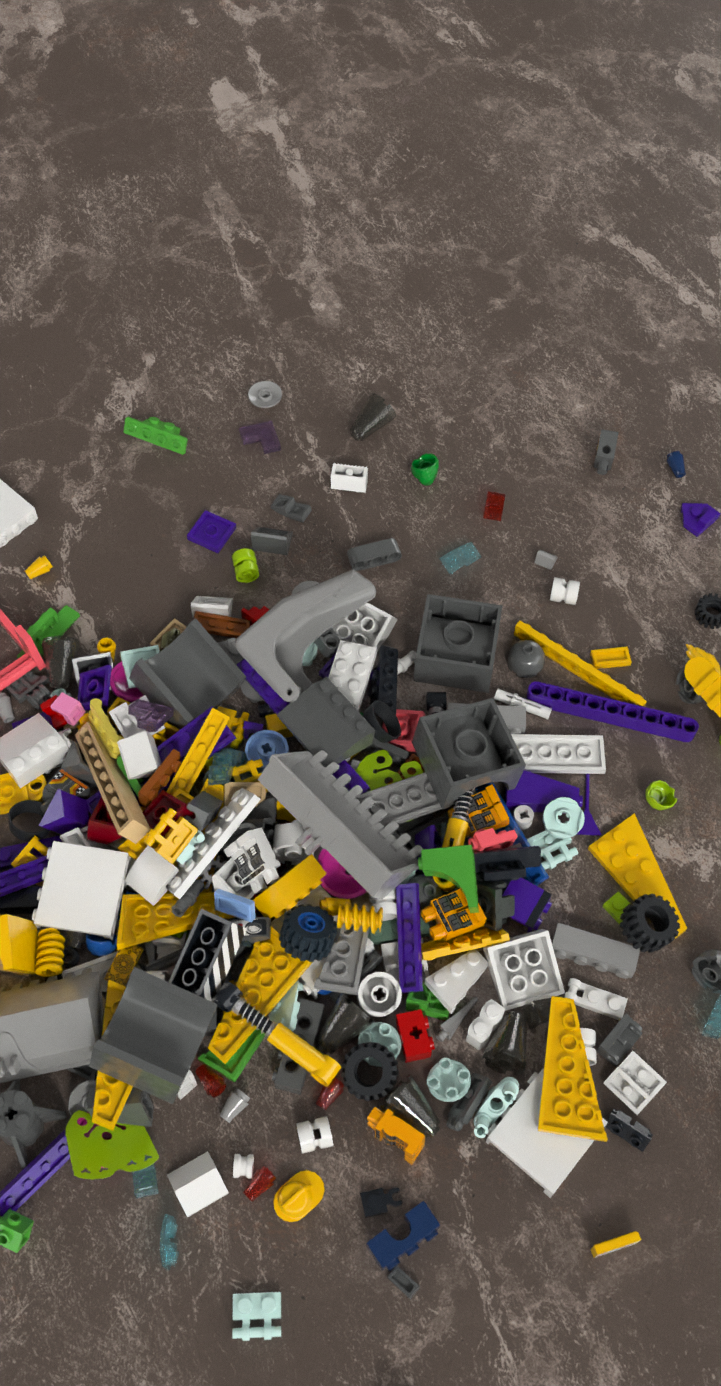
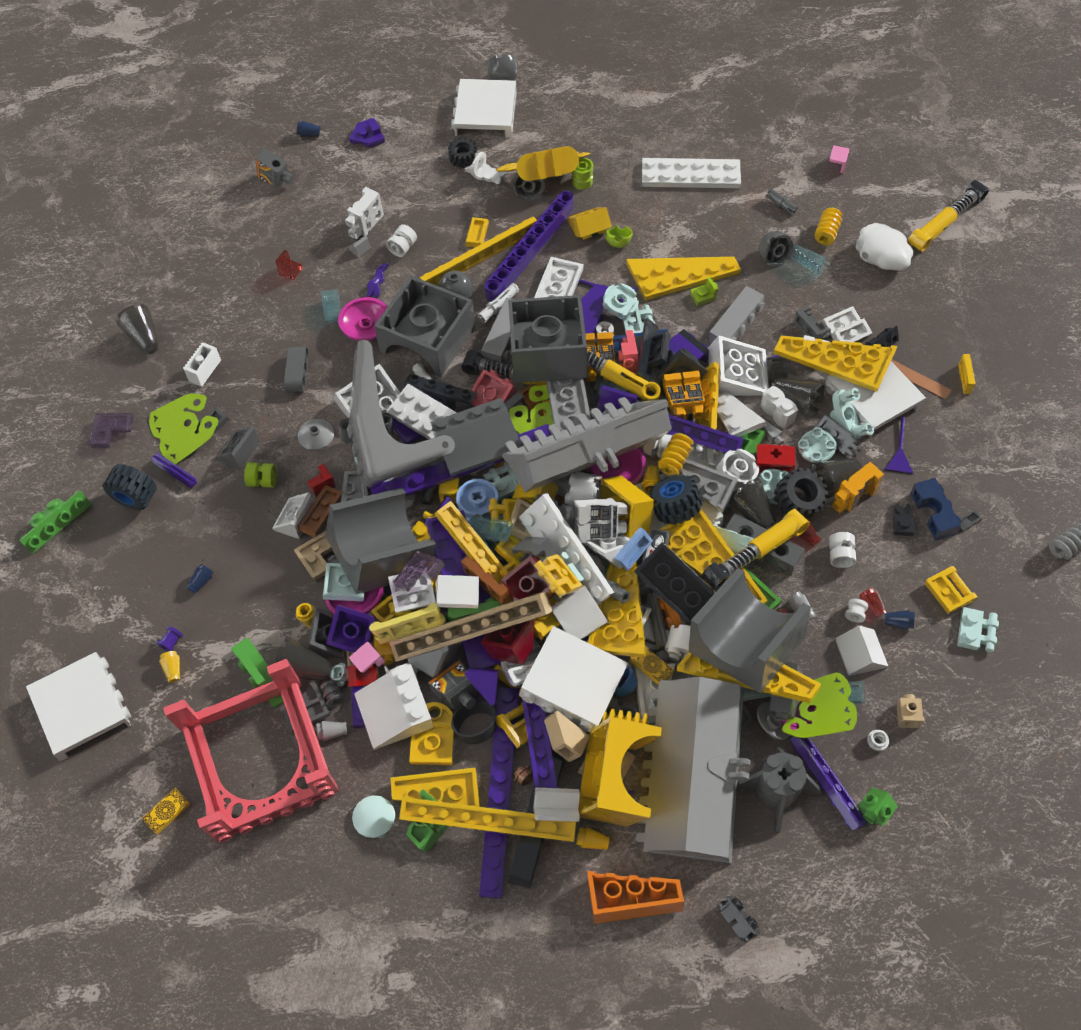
camera: 70 degrees left, 0 degrees up
(20, 900) = (565, 736): none -> tan slope
(63, 557) = (169, 639): none -> dark purple bush
(95, 1212) = (880, 735): none -> white plate
(126, 1257) = (906, 717): none -> tan brick
(128, 557) = (199, 578): none -> dark blue cone
(168, 1250) = (918, 684): clear light blue slope -> none
(169, 637) = (318, 557): olive arm -> none
(197, 471) = (129, 487): none -> black wheel
(211, 531) = (204, 497): dark purple plate -> none
(234, 499) = (174, 470): none -> dark purple axle
(245, 1219) = (900, 619): none -> dark blue cone
(265, 394) = (58, 411): light grey dish -> none
(273, 485) = (180, 438): none -> lime piece
(294, 1267) = (945, 591): none -> yellow plate
(298, 1196) = (887, 578): yellow piece -> none
(389, 719) = (481, 397): black tyre -> none
(425, 468) = (220, 303): green hair -> none
(450, 582) = (359, 318): none -> dark pink dish
(454, 865) = (655, 371): bright green arch -> none
(461, 1183) = (899, 462): none -> dark purple piece
(504, 586) = (373, 285): none -> dark purple hair
(581, 546) = (364, 213): none -> white hips
(592, 1186) = (923, 381): none -> nougat sticker
(596, 999) = (778, 327): white plate -> none
(661, 916) = (731, 270): black tyre -> none
(669, 760) = (590, 222): none -> yellow slope
(696, 636) = (483, 171): none -> white hair

